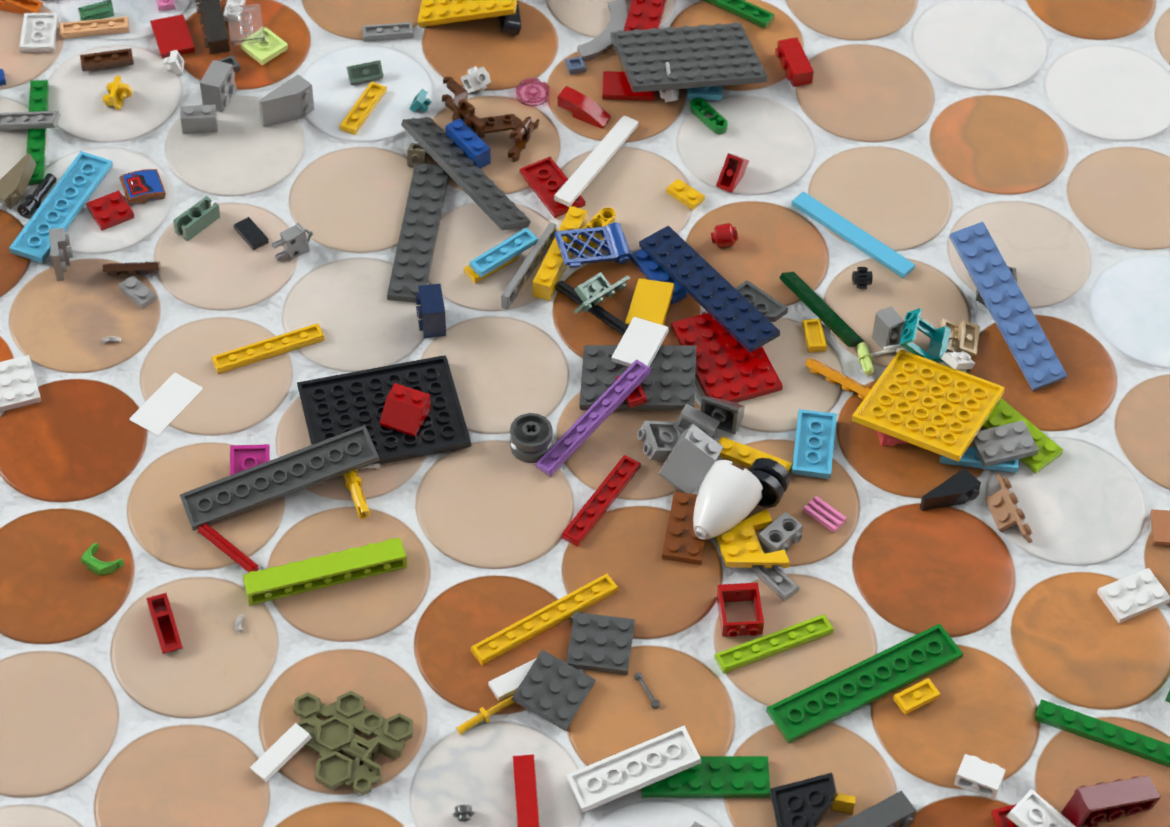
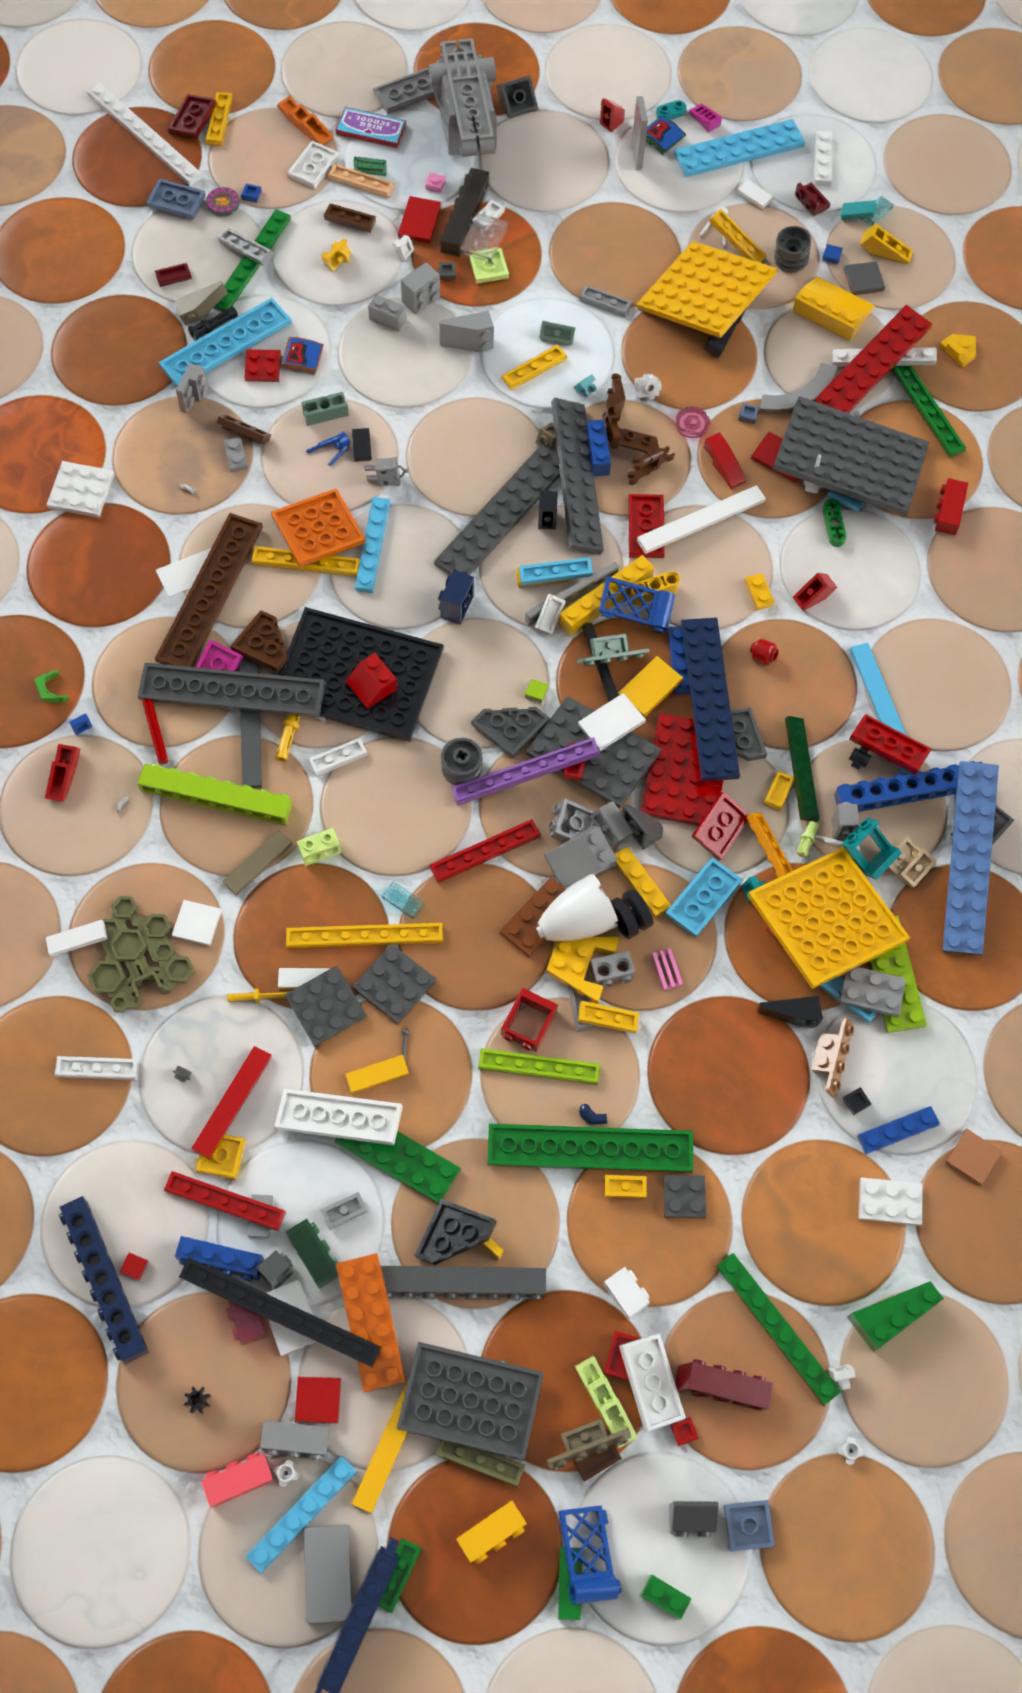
camera: 30 degrees right, 15 degrees up
(153, 575) = (80, 724): none -> blue tile
(196, 411) = (209, 592): none -> reddish brown plate
(229, 239) = (339, 442): none -> blue plant
(261, 314) = (318, 527): none -> orange plate
(279, 427) = (262, 642): none -> reddish brown plate
(320, 307) = (372, 548): none -> medium azure plate
(321, 509) = (250, 737): none -> dark grey tile
(384, 685) = (196, 923): none -> white tile
(404, 609) = (257, 863): none -> dark tan tile
(414, 489) = (337, 757): none -> white tile
(453, 566) = (319, 847): none -> yellowish green brick
(461, 208) = (547, 510): none -> black brick
(523, 287) = (550, 614): none -> white tile
(551, 392) = (510, 727): none -> dark grey plate
(553, 354) = (536, 690): none -> lime tile
(559, 572) = (403, 899): none -> clear light blue plate
(639, 721) = (377, 1074): none -> yellow tile
(789, 381) = (720, 826): none -> plate
(805, 572) = (608, 1017): none -> yellow plate
(845, 417) = (751, 884): none -> teal tile
(846, 658) = (590, 1117): none -> dark blue arm
(879, 255) = (890, 744): none -> red tile
(914, 284) = (903, 793): none -> blue brick
(958, 360) = (889, 886): white plate -> none
(969, 679) = (684, 1196): none -> dark grey plate
(1052, 533) = (857, 1101): none -> black plate
(1099, 539) = (898, 1130): none -> blue plate

